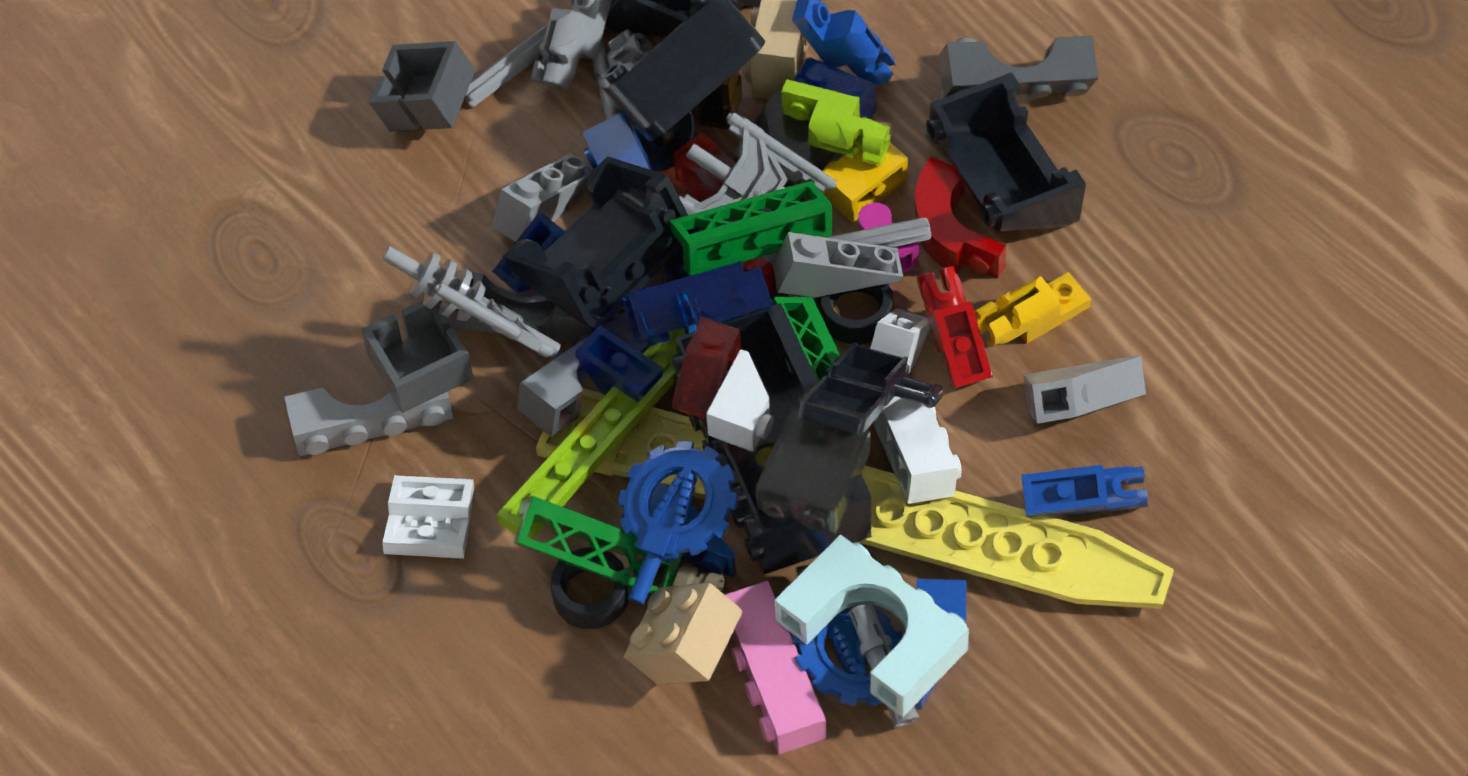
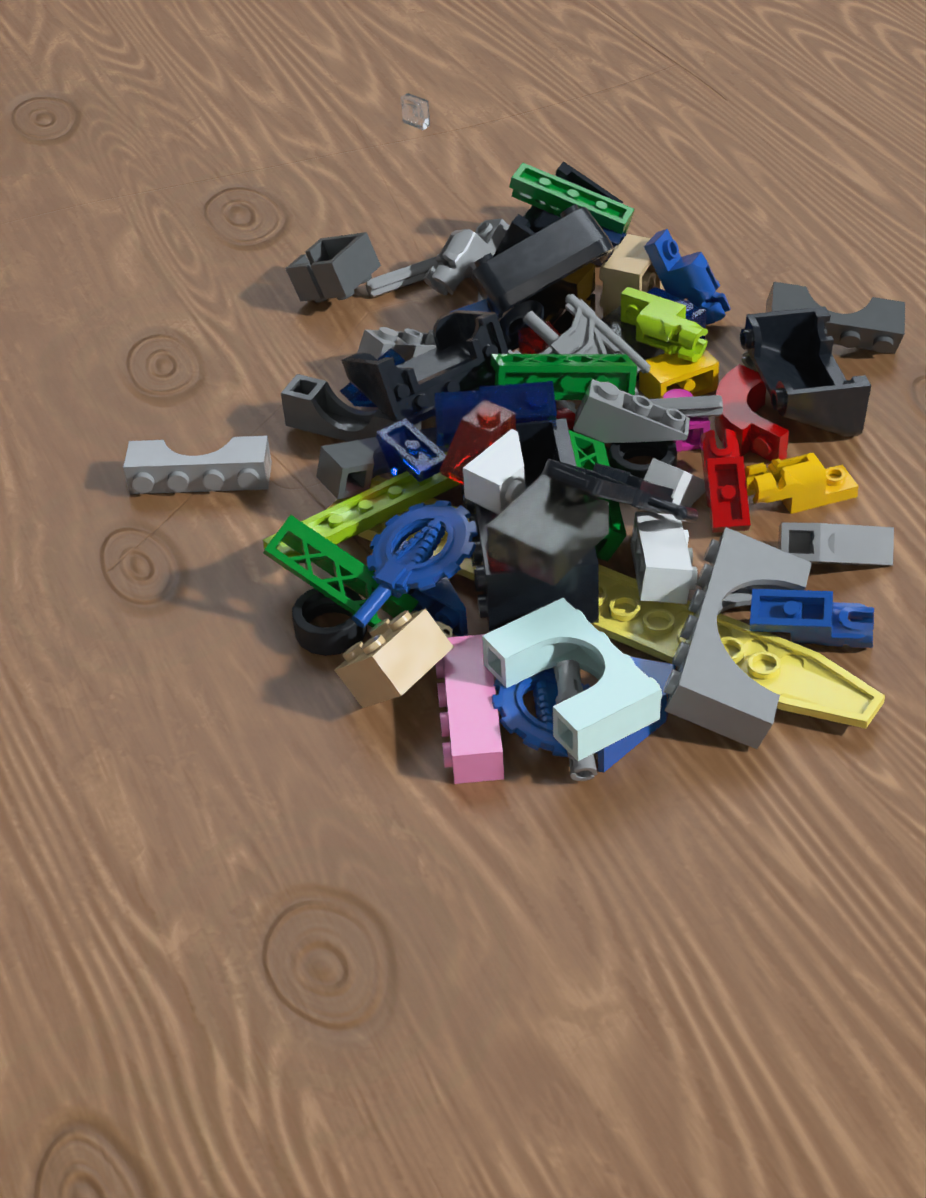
camera: 15 degrees right, 15 degrees down
(422, 364) = (248, 433): dark grey piece -> none
(428, 516) = (214, 549): white slope -> none
(454, 292) = (286, 368): light grey bar -> none
(1002, 597) = (708, 683): none -> light grey arch

